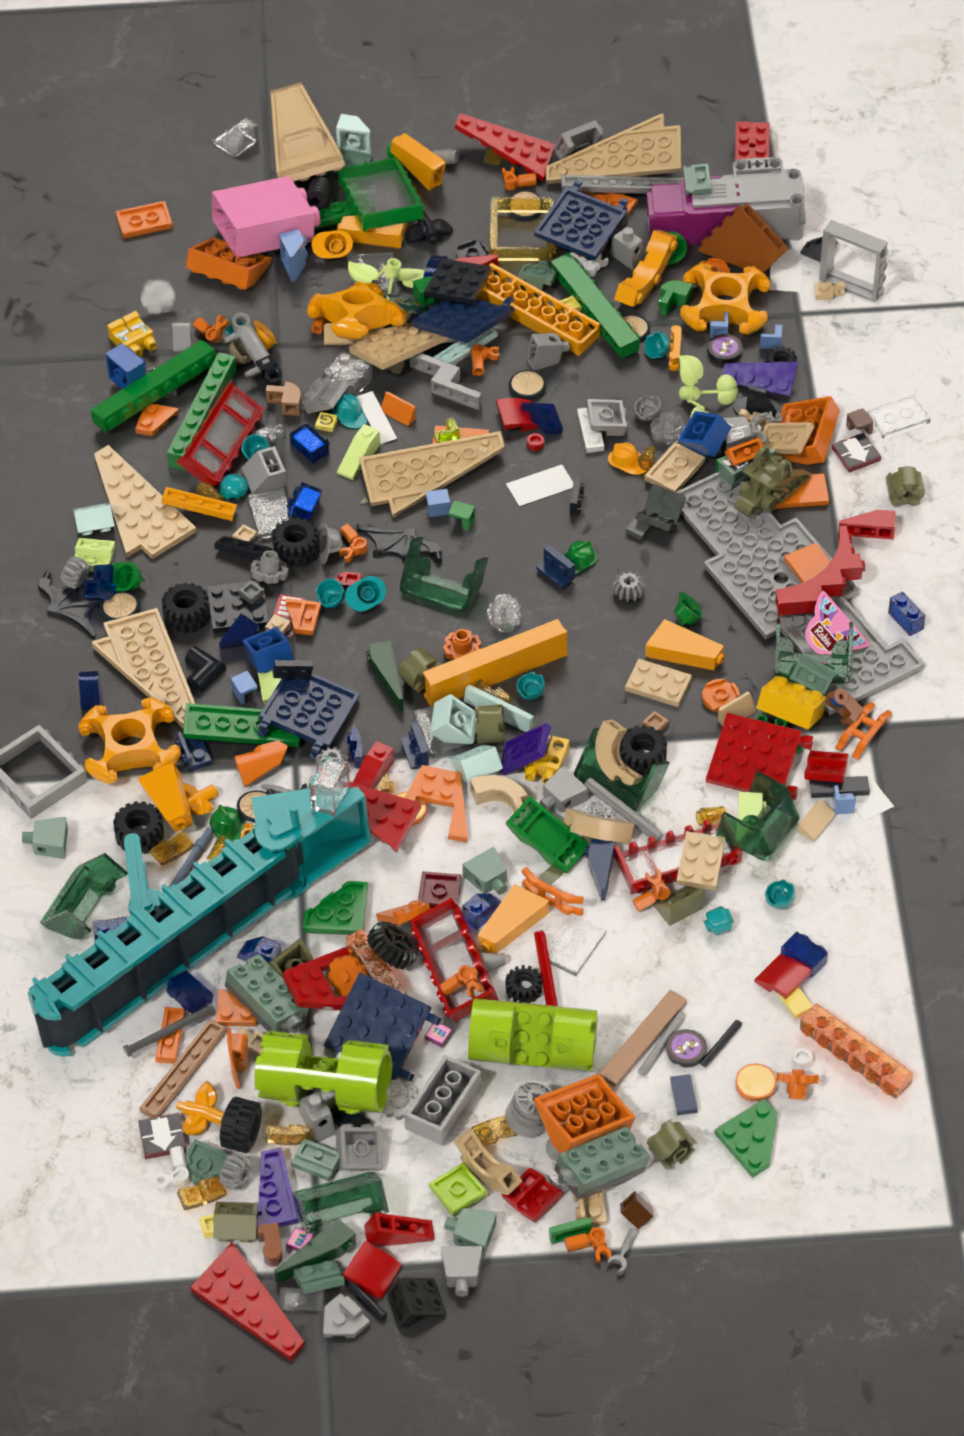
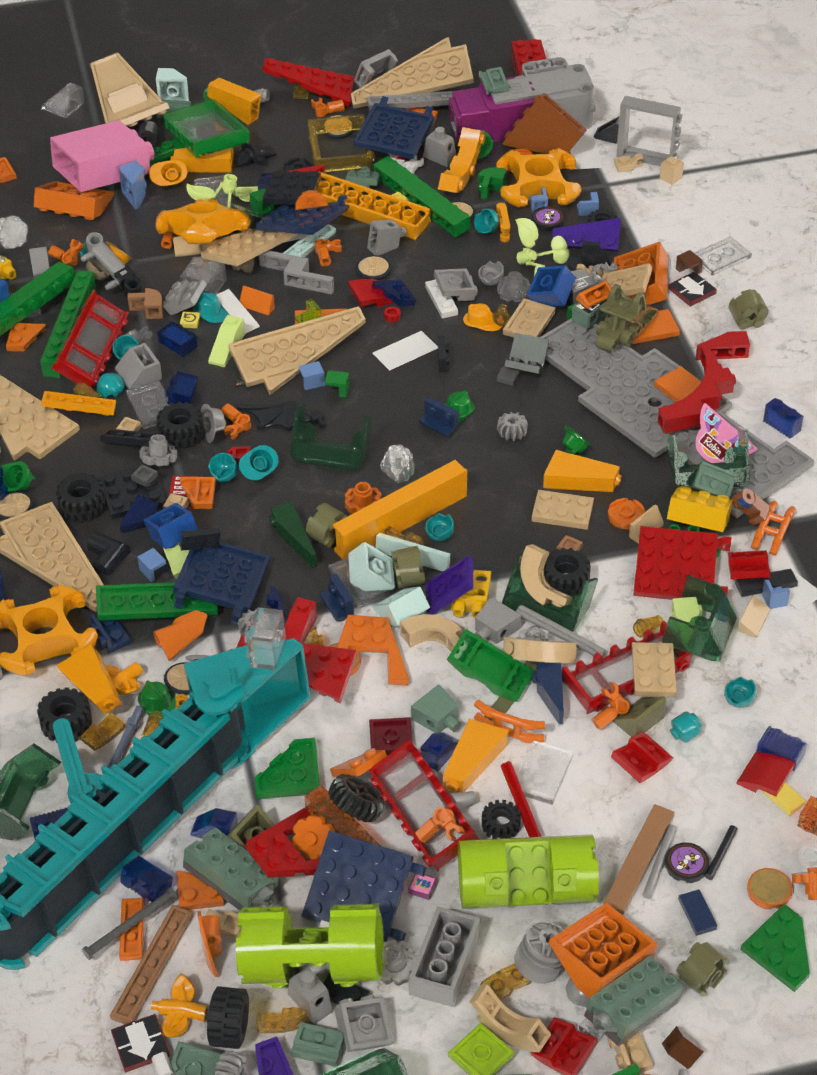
camera: 10 degrees left, 5 degrees down
(473, 300) = (310, 199): none -> orange plate
(670, 943) = (641, 757): none -> red slope
(871, 306) = (671, 170): none -> tan brick

